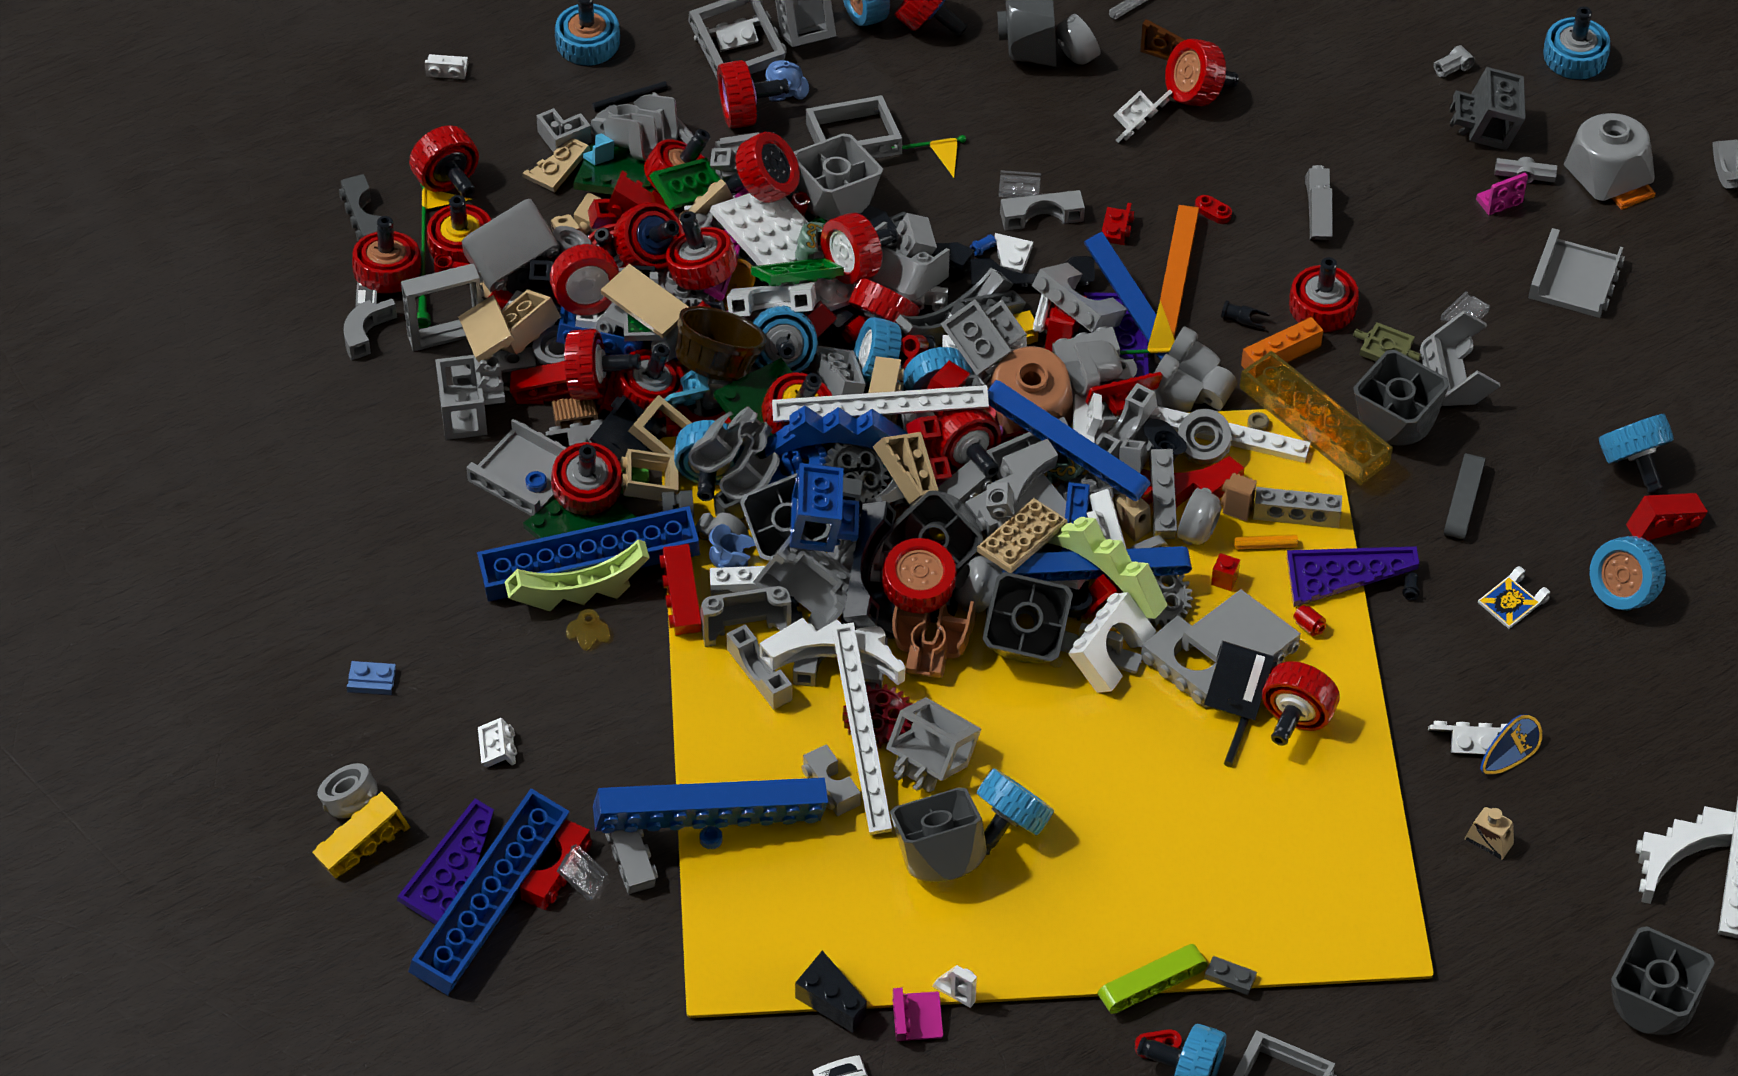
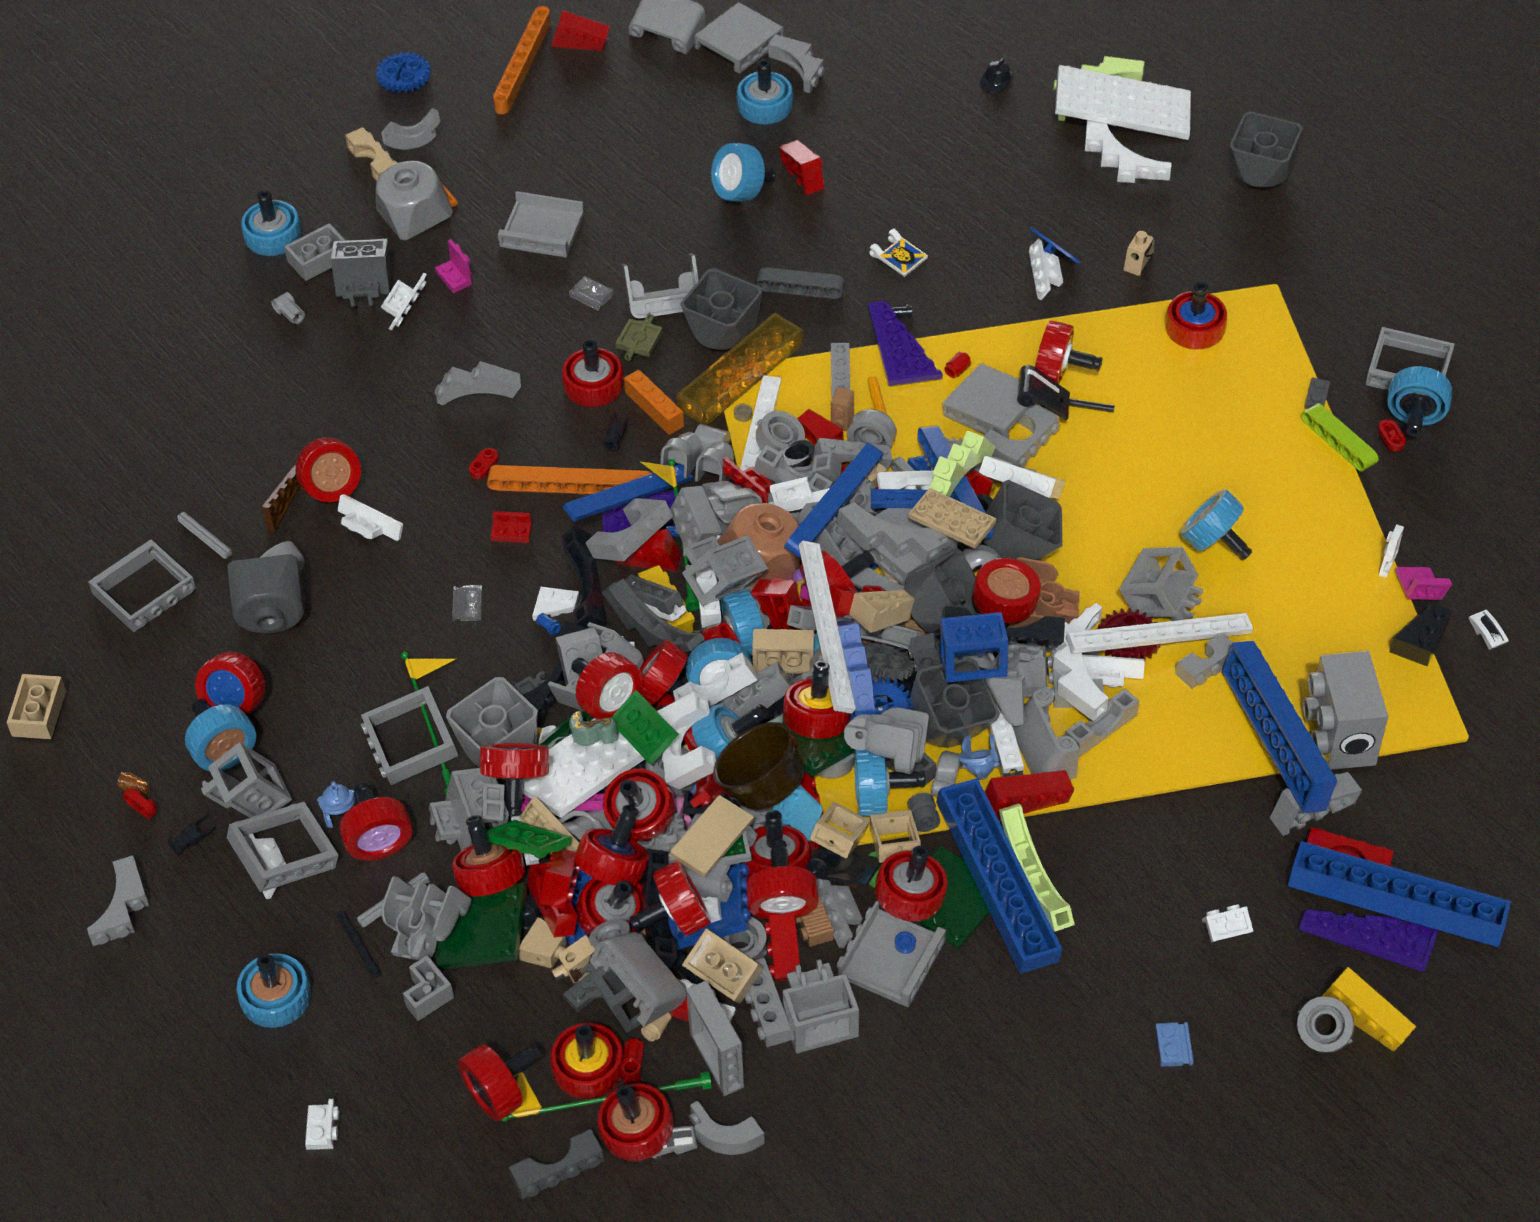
camera: 95 degrees left, 0 degrees up
(486, 329) = (753, 982): tan tile -> none
(556, 169) = (474, 989): tan wing -> none
(582, 872) = (1357, 829): clear plate -> none
(588, 631) = (1075, 873): clear yellow plate -> none
(602, 150) = (460, 944): medium azure panel -> none
(714, 867) = (1346, 710): none -> light grey brick
(829, 690) = (1113, 669): none -> white bracket
(853, 349) = (737, 675): none -> white arch
(940, 835) = (1263, 560): dark grey piece -> none
(1000, 500) = (918, 534): light grey brick -> none
(1041, 314) = (633, 565): white axle -> none
(1064, 205) = (505, 598): light grey arch -> none
(1225, 572) = (920, 416): red brick -> none
(1361, 864) = (1196, 318): none -> red wheel
(1460, 149) = (399, 298): none -> white bracket
(1526, 165) = (421, 257): light grey piece -> none
(1542, 84) = (313, 252): none -> light grey brick
(1627, 573) = (878, 174): dark azure wheel -> none
(1676, 143) = (363, 145): none -> tan arch

